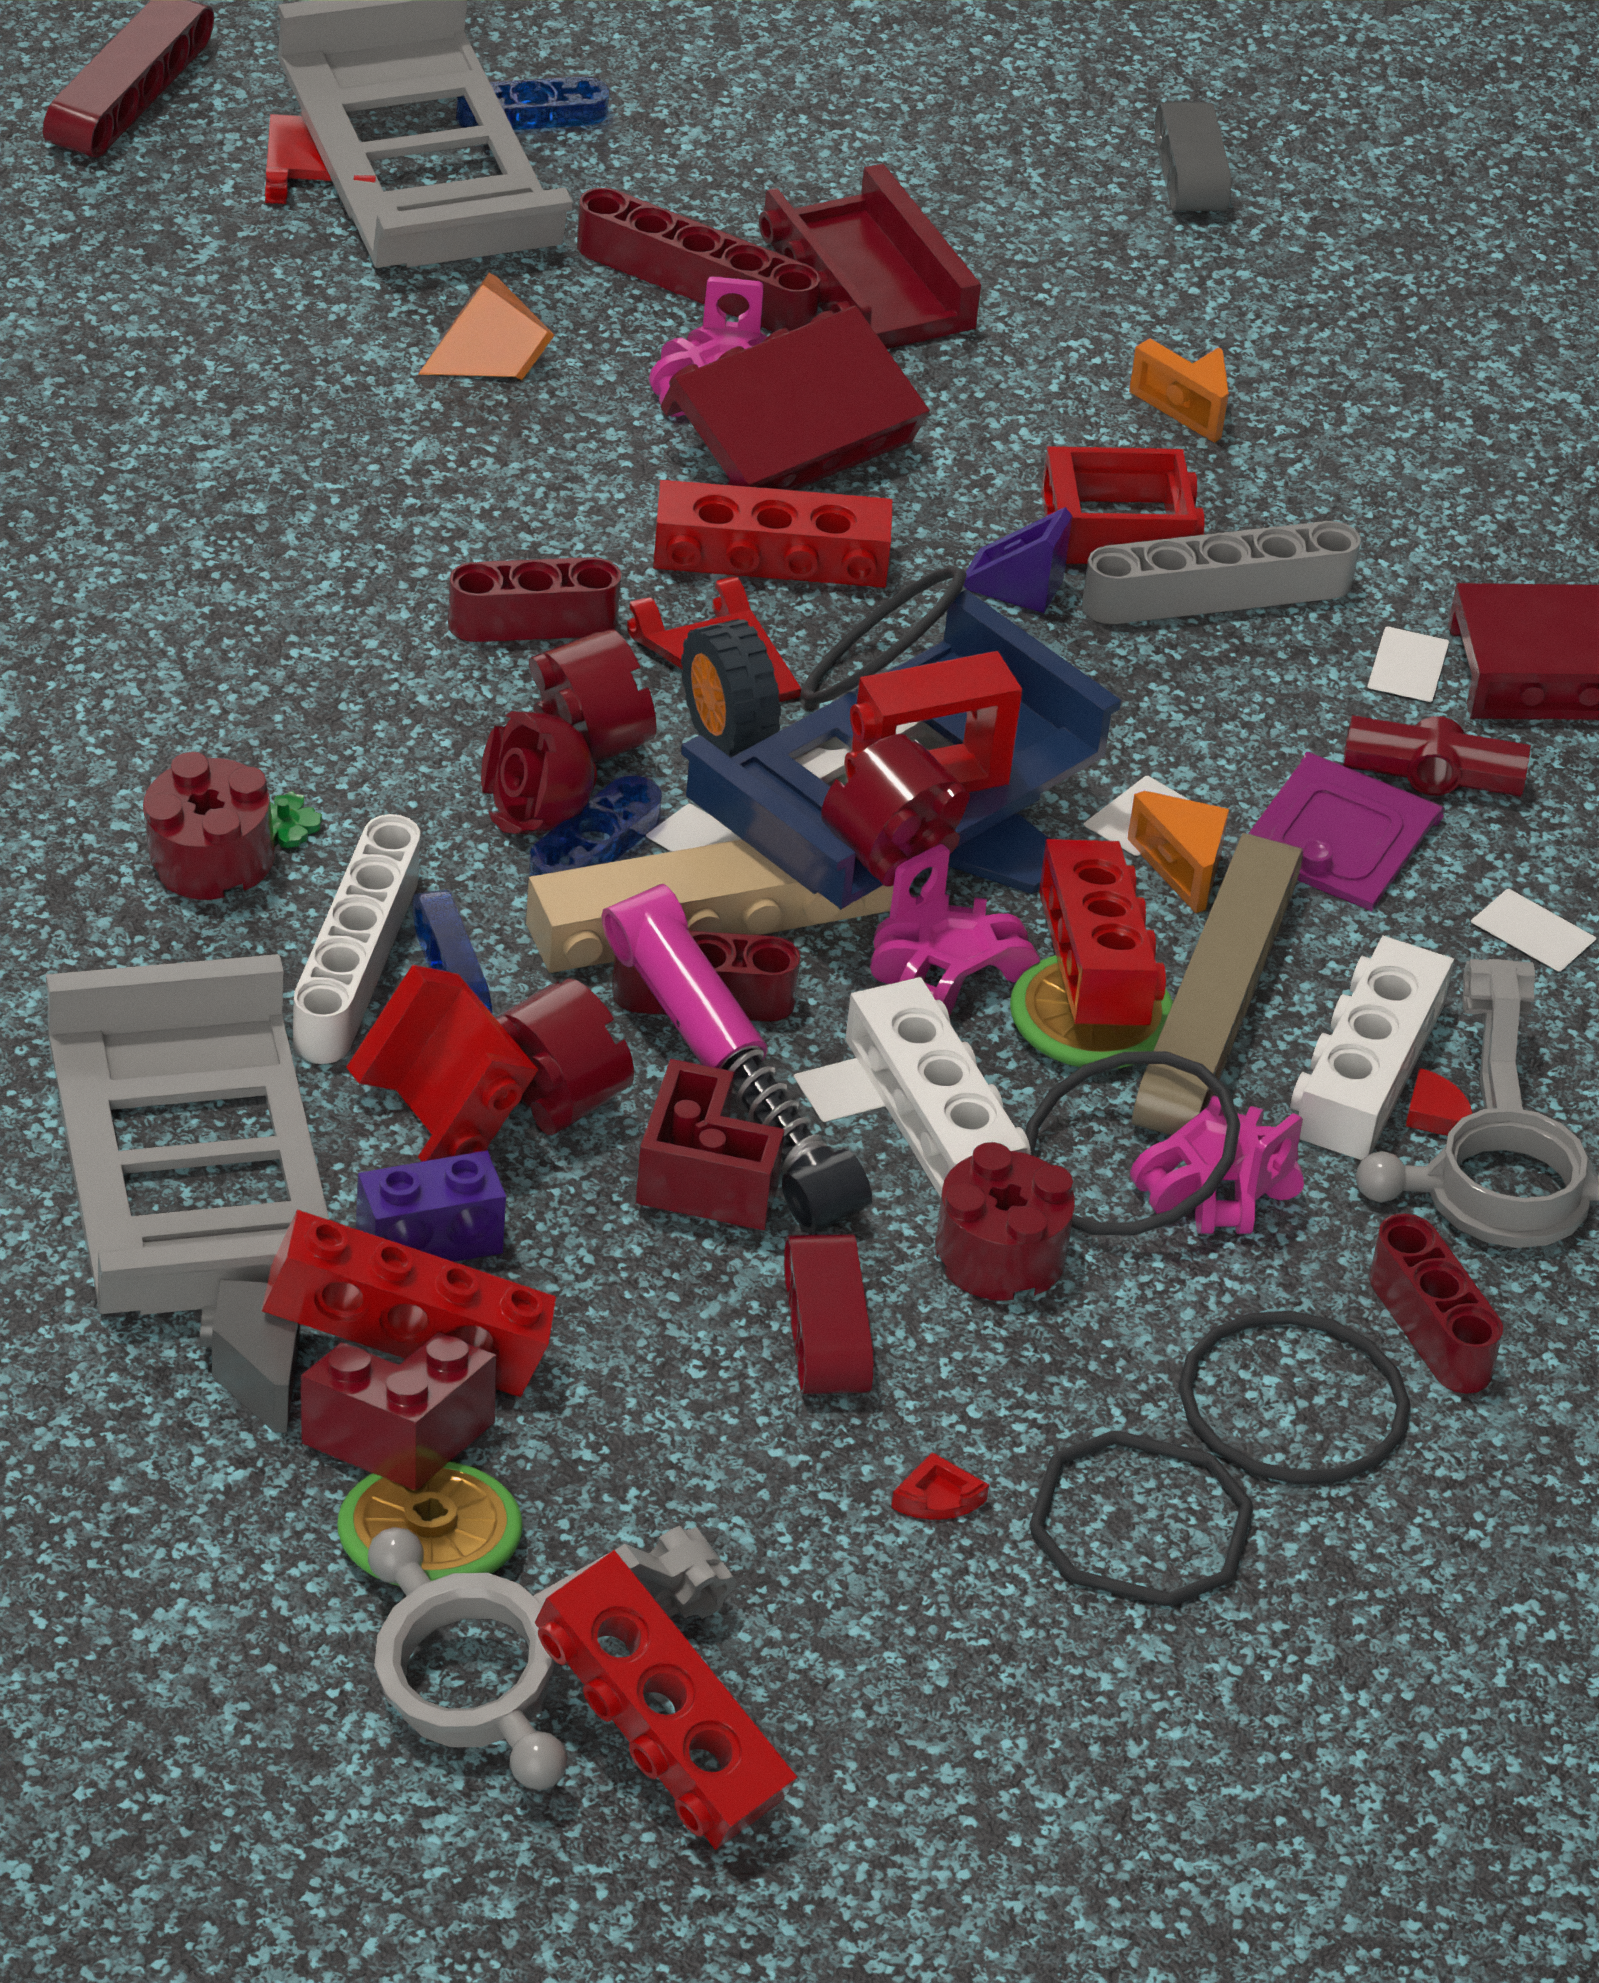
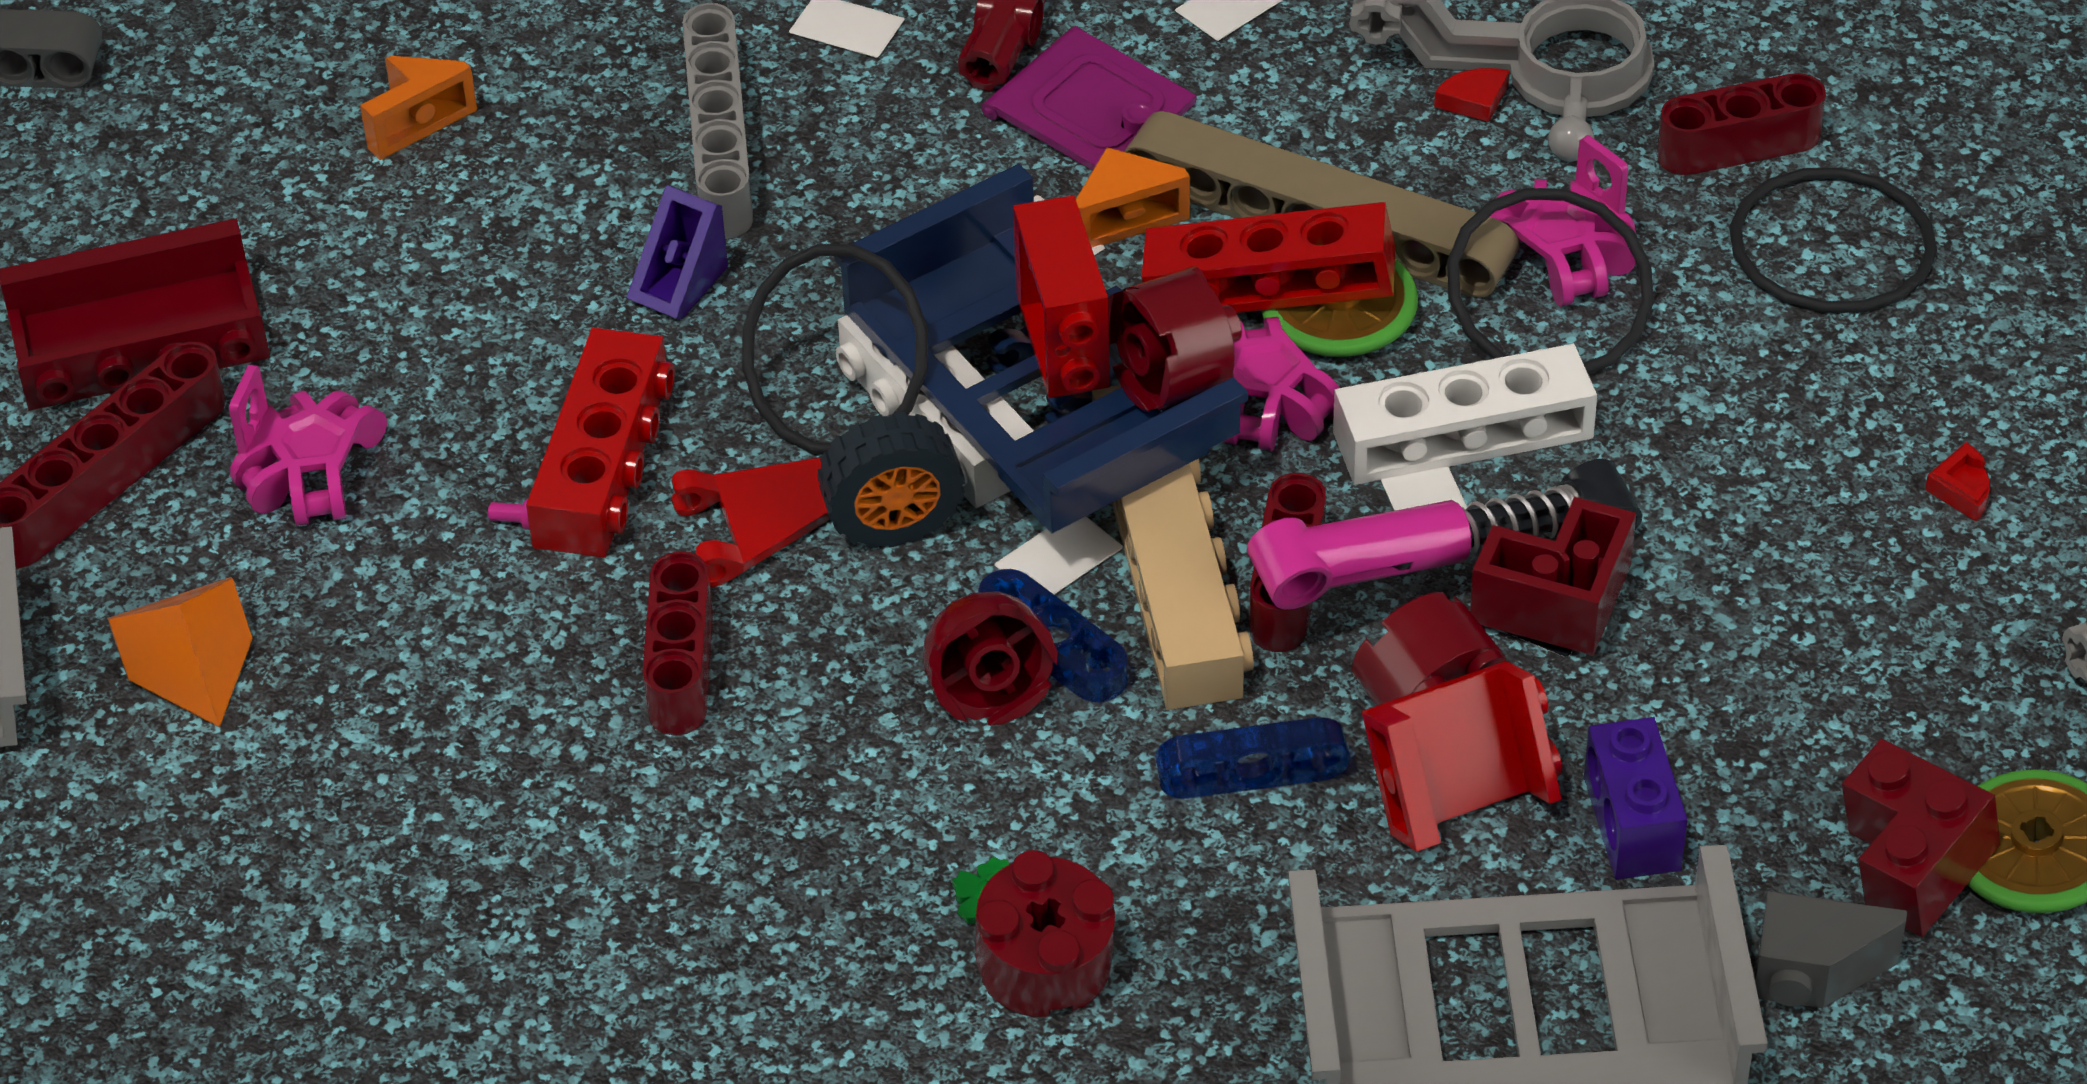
camera: 75 degrees left, 5 degrees up
(356, 939) = (1211, 828): white beam -> none
(403, 1297) = (1801, 805): red brick -> none
(596, 693) = (877, 593): dark red brick -> none
(800, 403) = (415, 384): dark red panel -> none
(828, 1314) = (1759, 523): dark red beam -> none
(1004, 1223) = (1652, 381): dark red brick -> none
(1120, 476) = (599, 215): red window -> none
(1122, 1587) = (1964, 414): black piece -> none
(1372, 1047) = (1413, 113): white brick -> none

